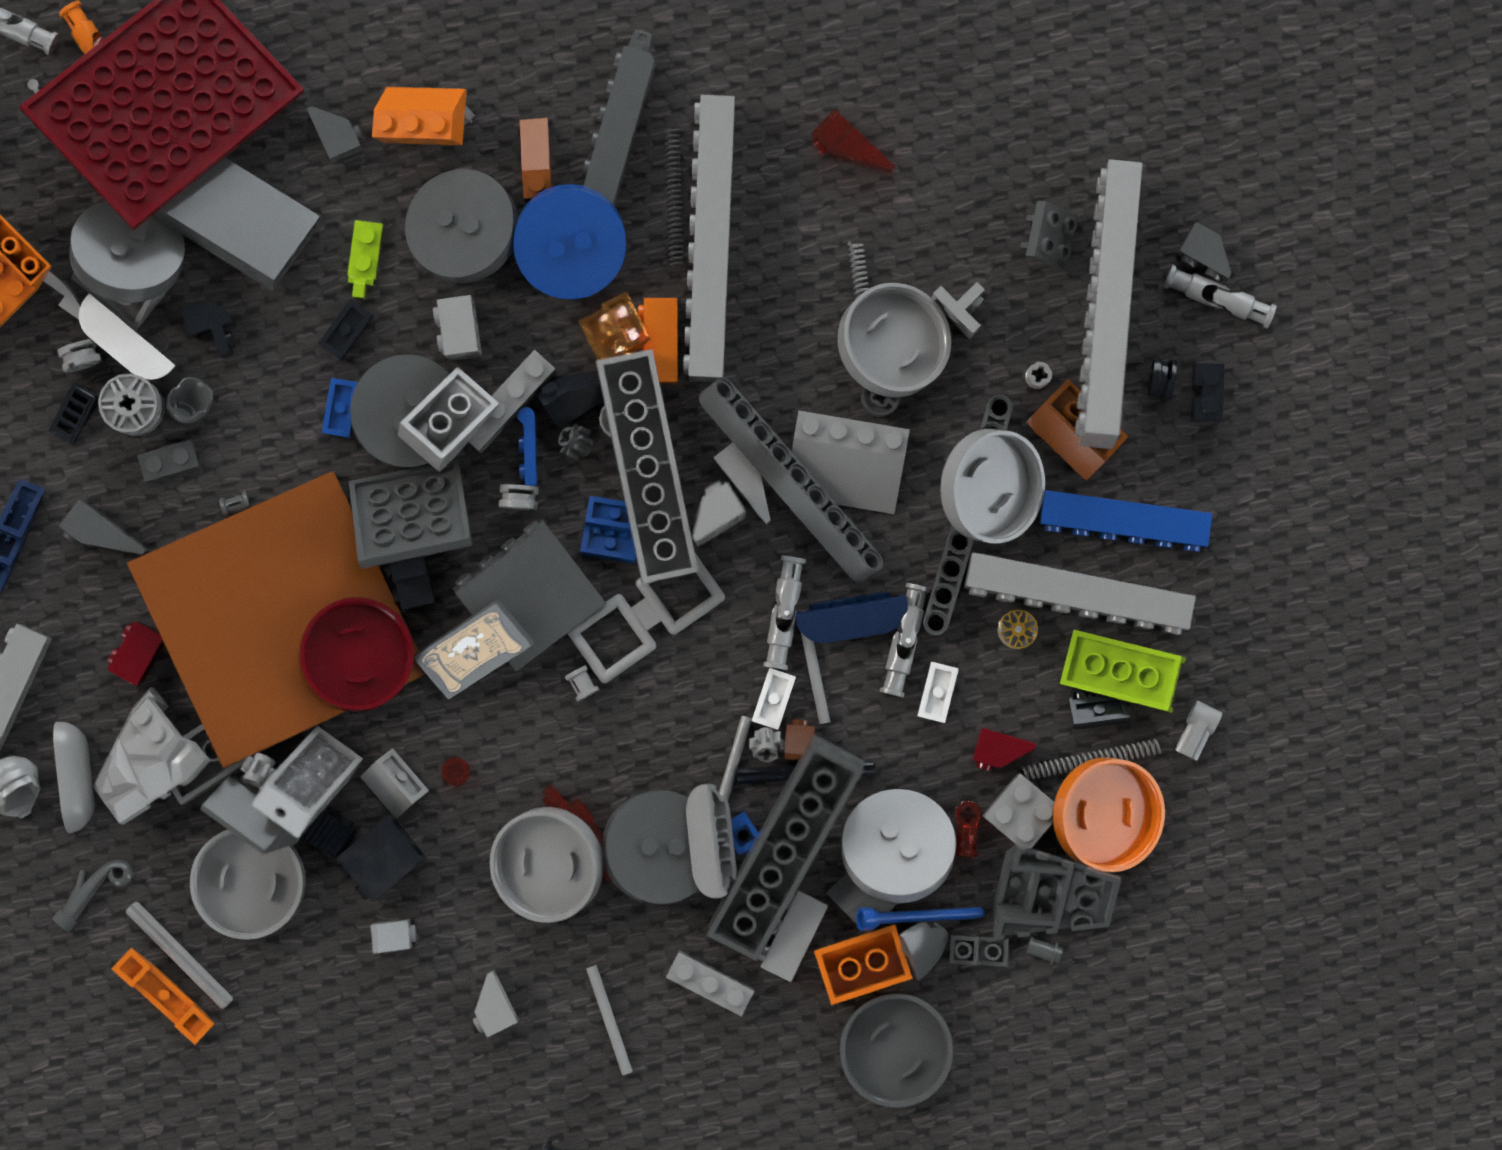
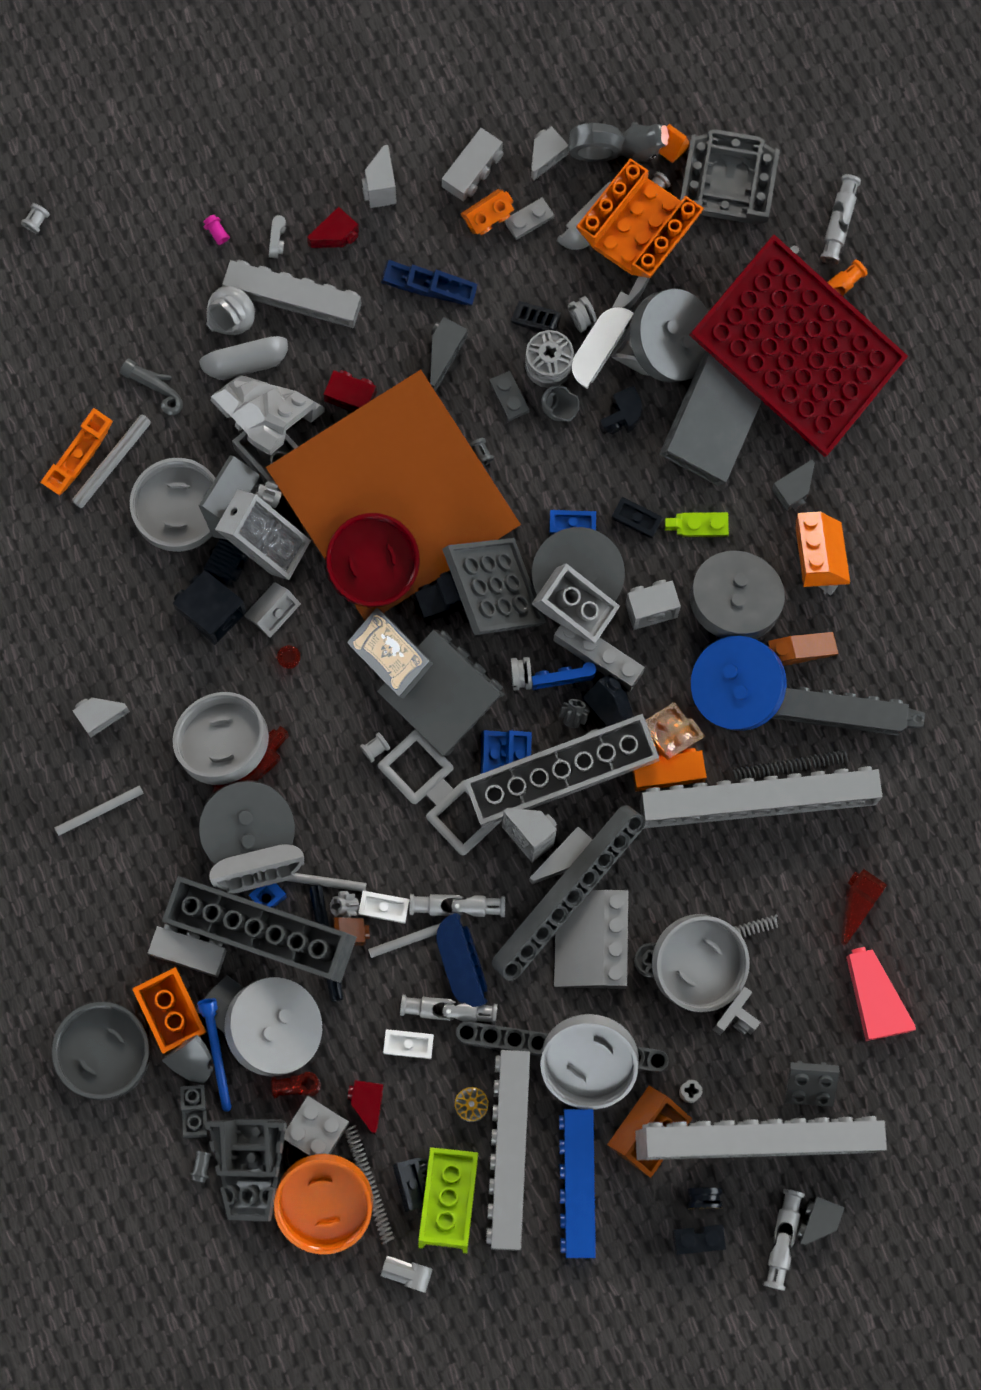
camera: 80 degrees right, 10 degrees down
(392, 935) = (147, 623): light grey slope -> none
(710, 983) = (139, 887): light grey brick -> none
(962, 144) = (876, 998): none -> coral slope

